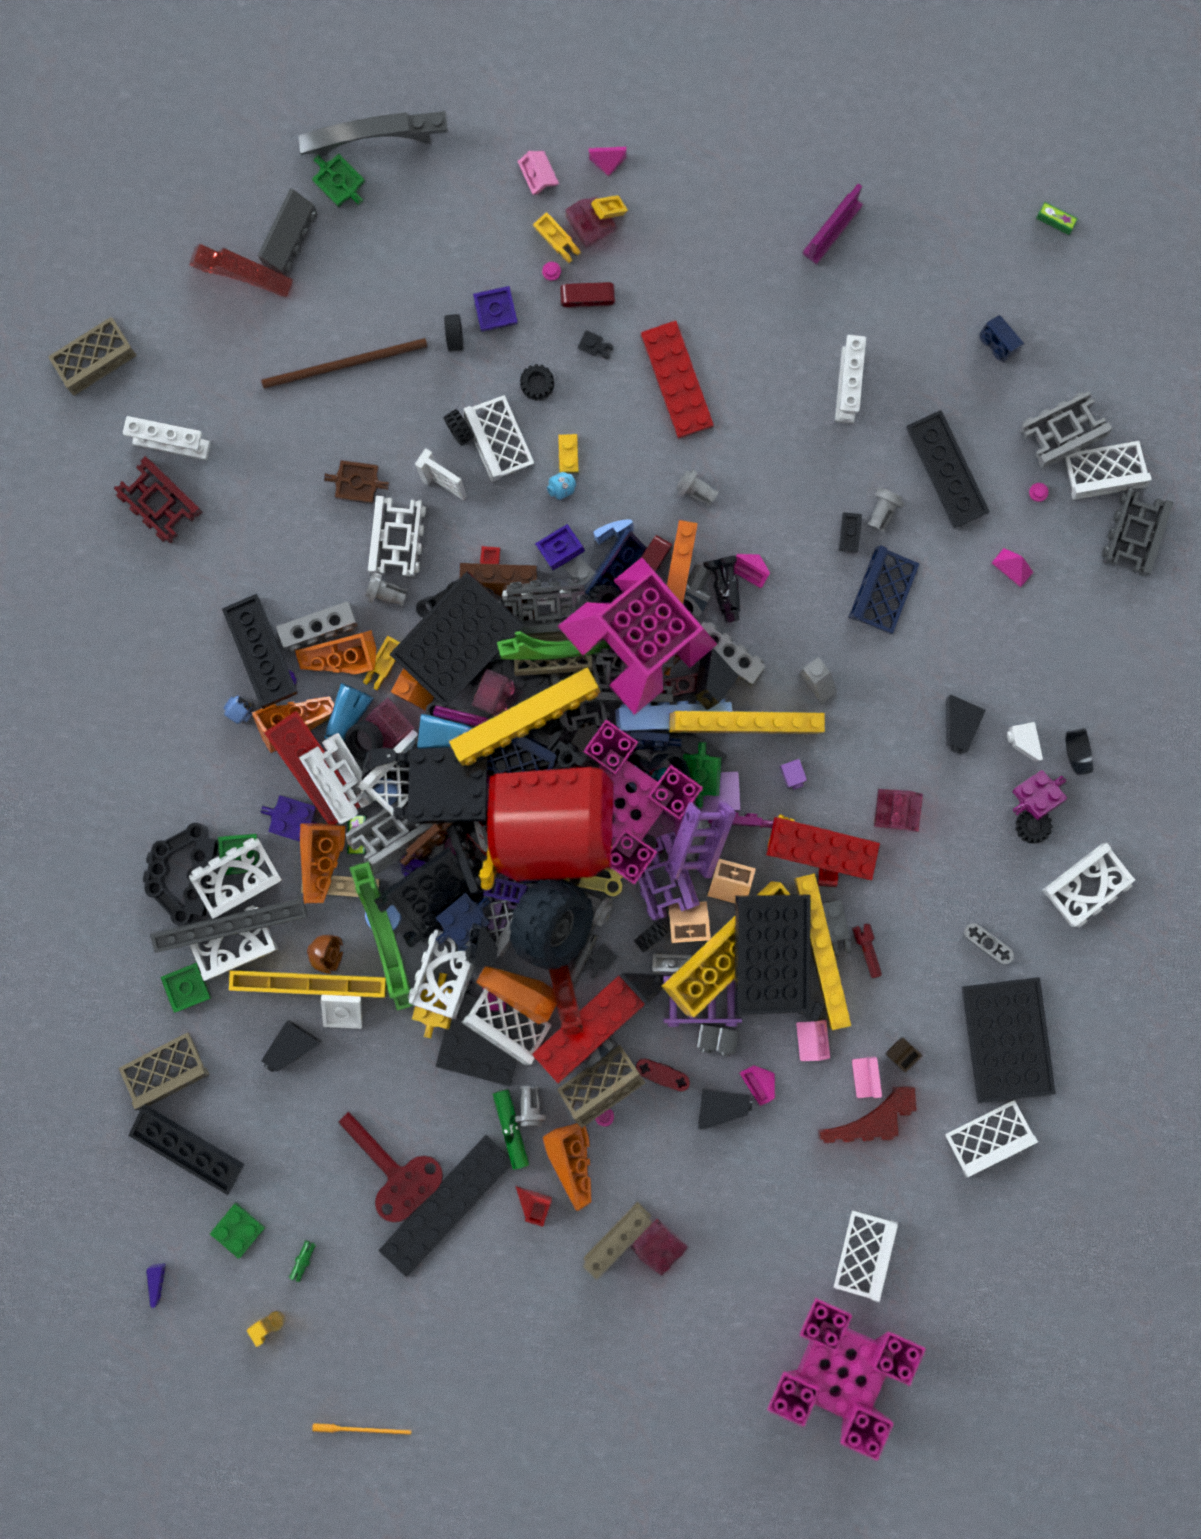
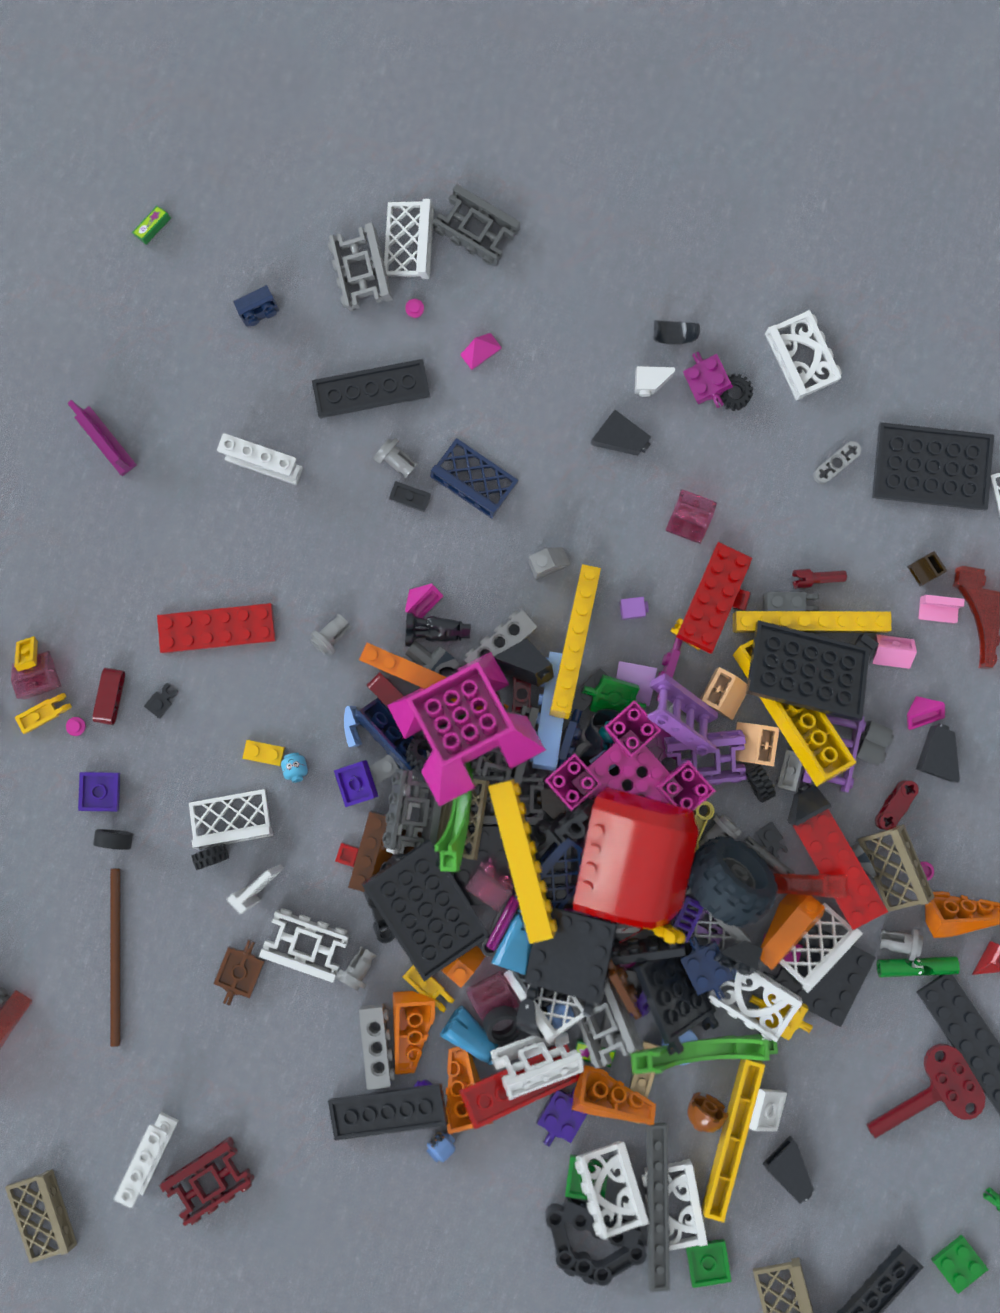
camera: 80 degrees left, 0 degrees up
(539, 393) = (172, 767): black tyre -> none

